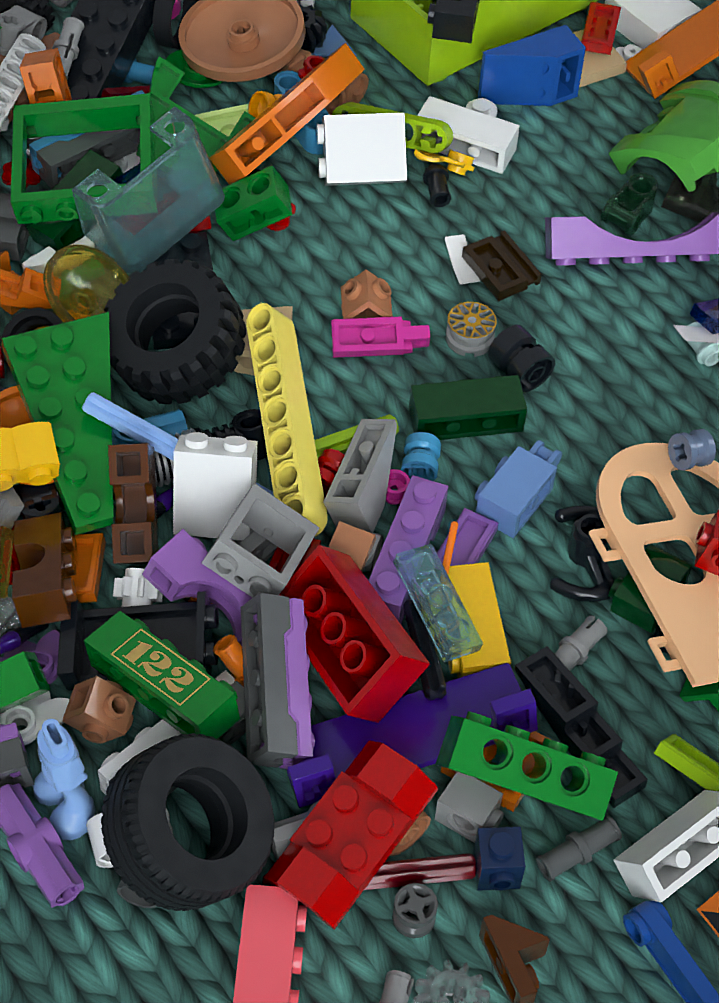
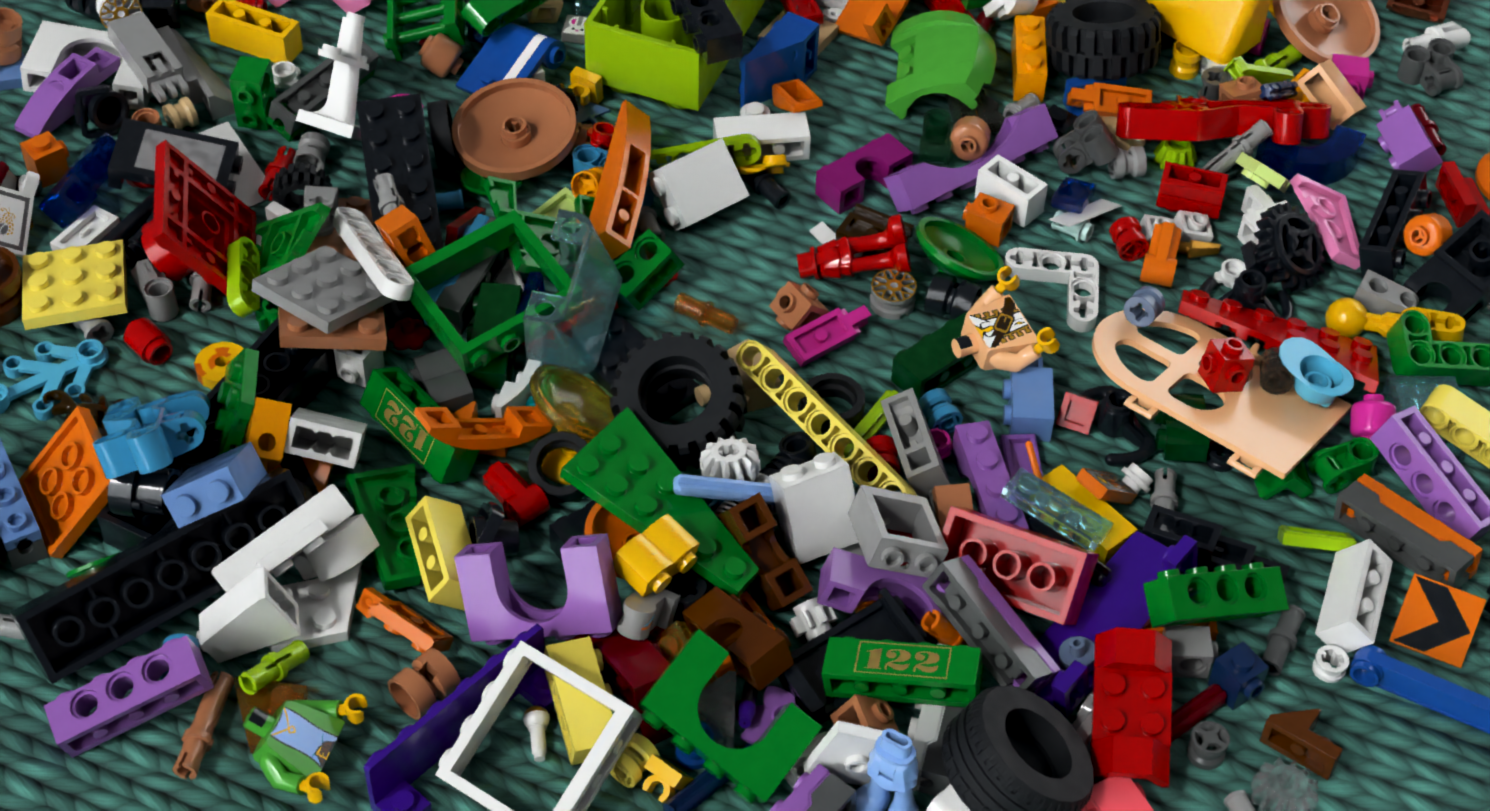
camera: 30 degrees left, 5 degrees down
(39, 709) = (845, 752): none -> white plate
(168, 406) = (730, 459): none -> white gear
(284, 268) = (705, 313): none -> clear orange axle
(301, 164) = (647, 220): none -> light grey pin
(338, 384) = (842, 387): none -> black tyre
(344, 24) = (586, 85): none -> yellow tile
(345, 749) = (1077, 649): none -> sand blue tile
(445, 275) = (837, 257): none -> red piece
(508, 202) = (843, 180): none -> magenta arch
(518, 605) = (1105, 486): none -> orange tile
(523, 405) = (999, 332): none -> torso
(525, 108) = (794, 96): none -> orange slope
(553, 522) = (1077, 412): none -> plate
(561, 614) = (1136, 478): none -> white plate
(562, 314) = (958, 250): none -> green dish
(617, 886) = (1323, 669): none -> white bush
(621, 301) = (989, 218): none -> orange brick
(661, 282) = (1013, 185): none -> white brick
(662, 394) = (1074, 277): none -> white beam
(663, 216) = (970, 138): none -> nougat head

